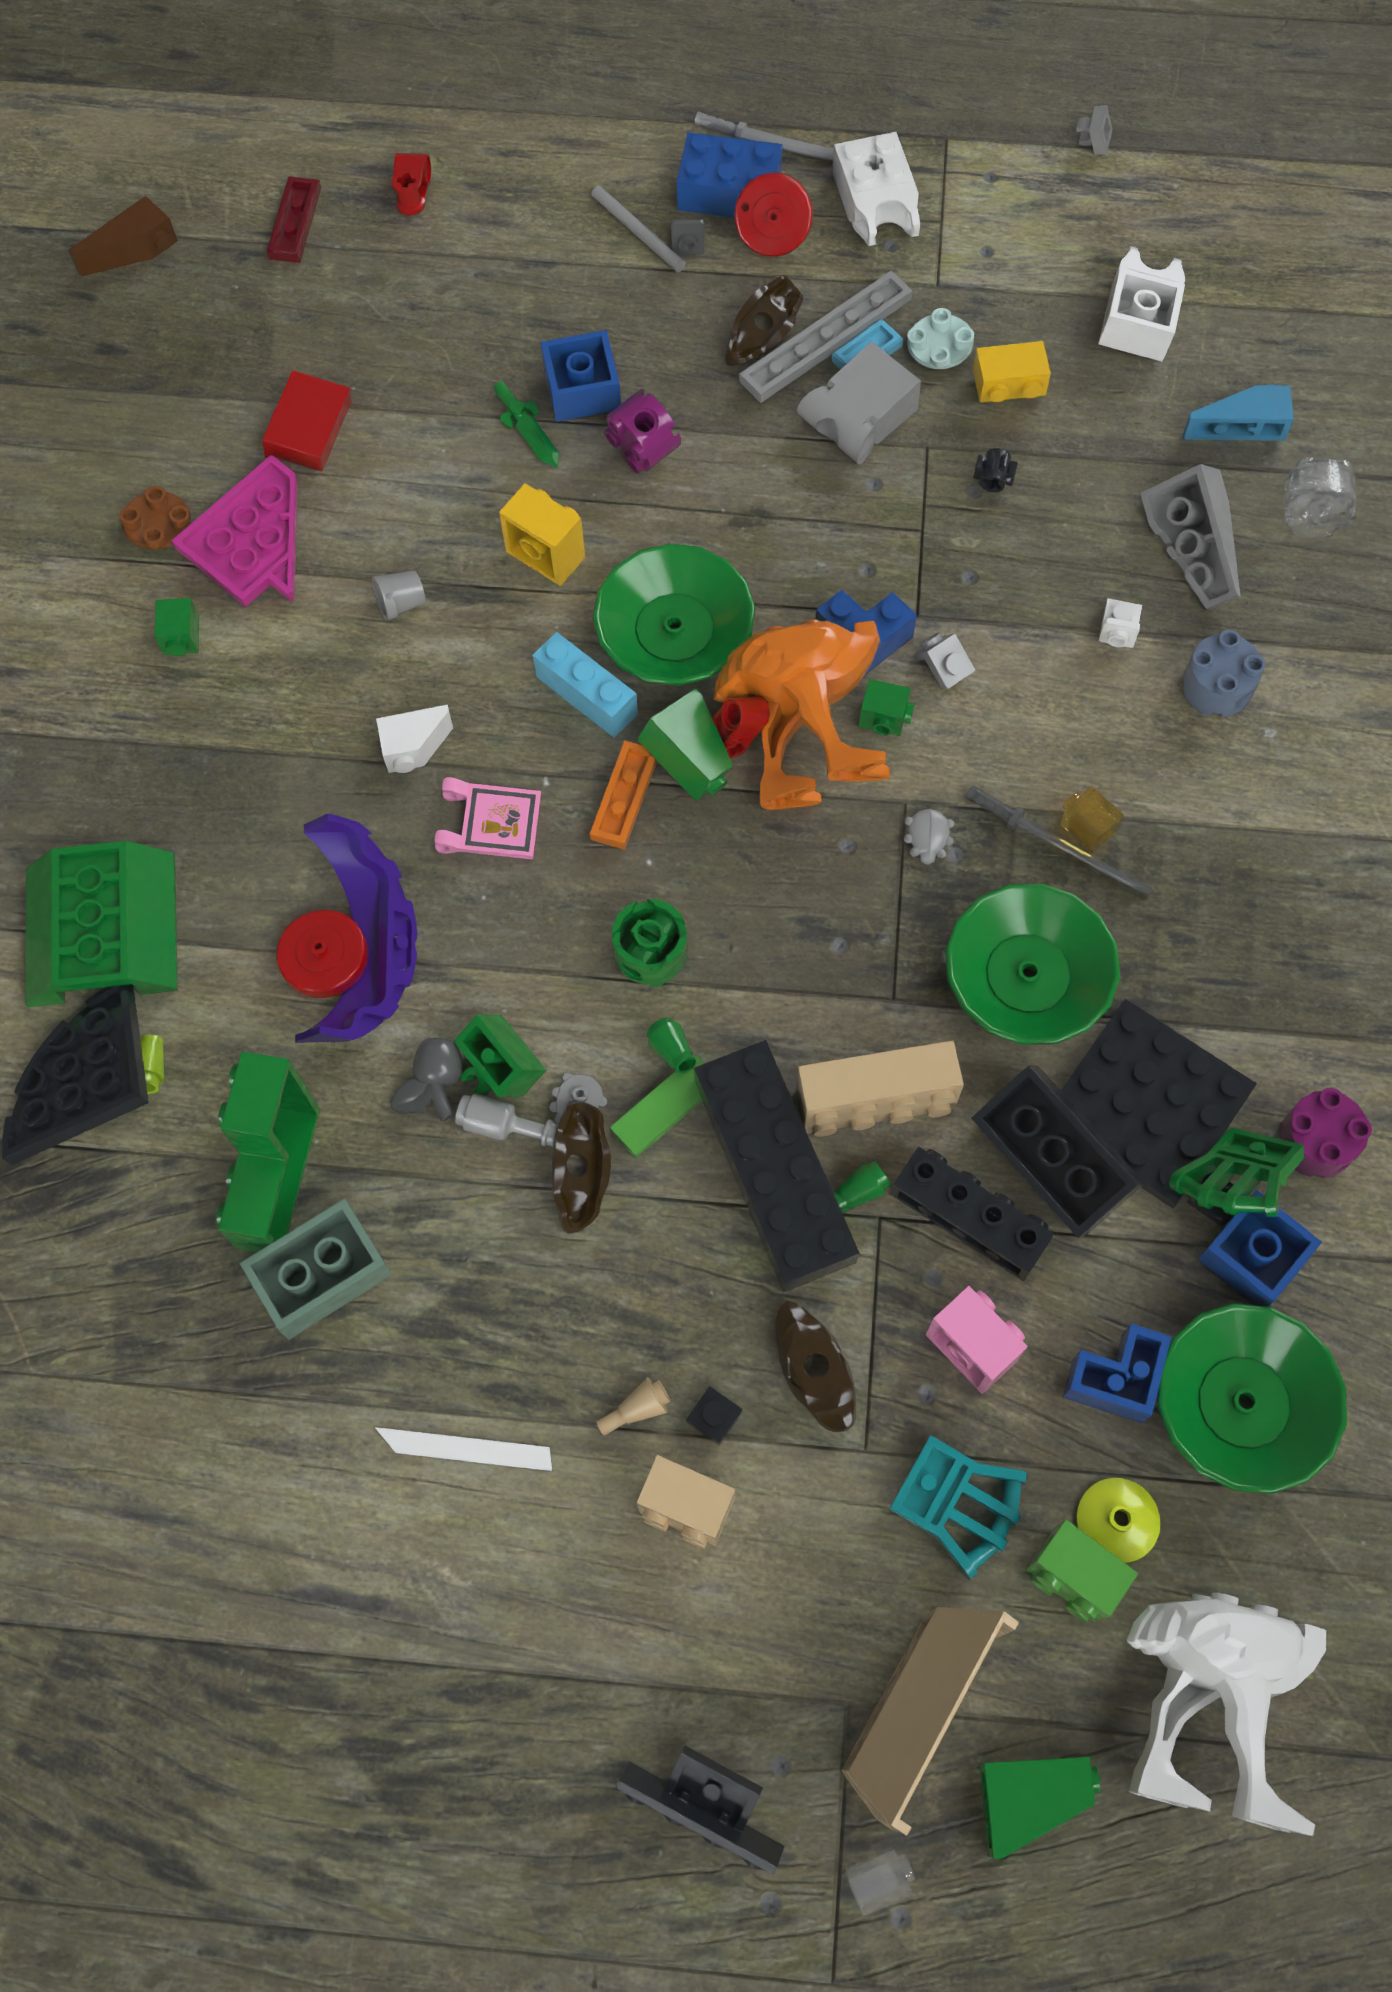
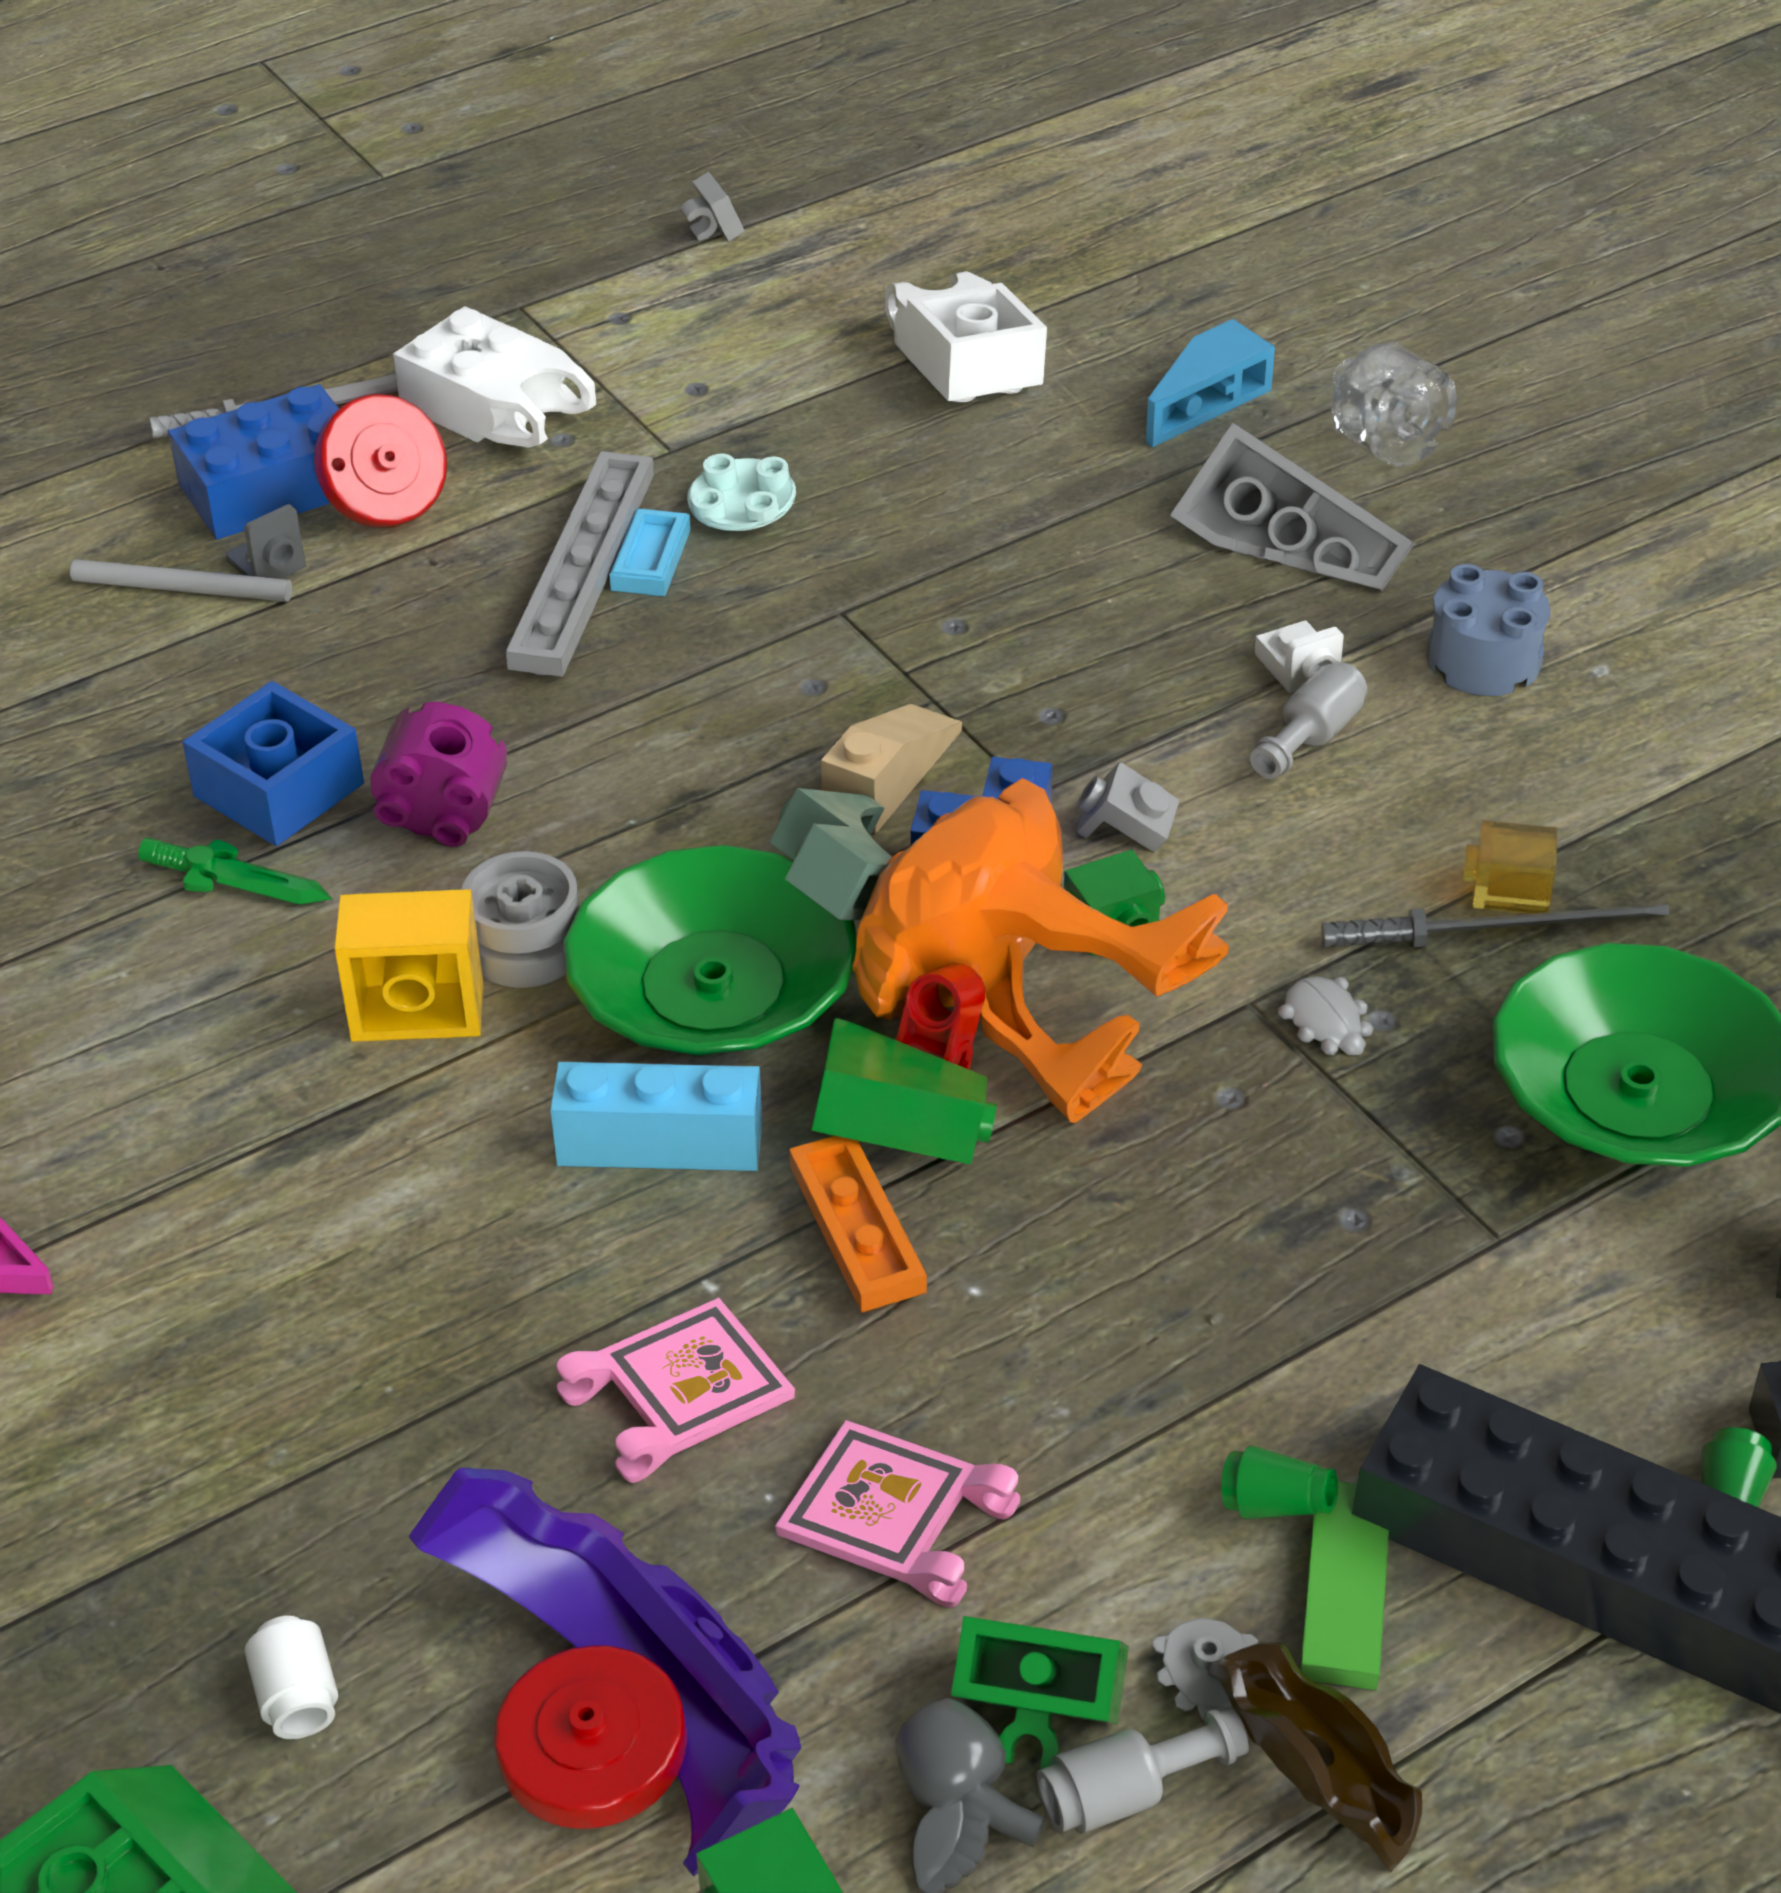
camera: 40 degrees left, 25 degrees down
(240, 846) = (292, 1677): none -> white brick
(398, 593) = (233, 1174): light grey piece -> none
(413, 737) = (440, 1347): white slope -> none
(522, 933) = (887, 1503): none -> bright pink flag
(615, 533) = (522, 917): none -> light grey wheel
(650, 942) = (1104, 1370): green brick -> none
(770, 584) = (832, 848): none -> sand green arch
(777, 302) = (485, 561): dark brown piece -> none
(860, 553) = (888, 755): none -> tan slope
(862, 402) = (713, 595): light grey piece -> none
(879, 1088) = (1635, 1317): tan brick -> none
(995, 470) = (967, 579): black gear -> none
(1011, 371) = (875, 472): yellow brick -> none
(1086, 665) = (1312, 716): none -> light grey piece

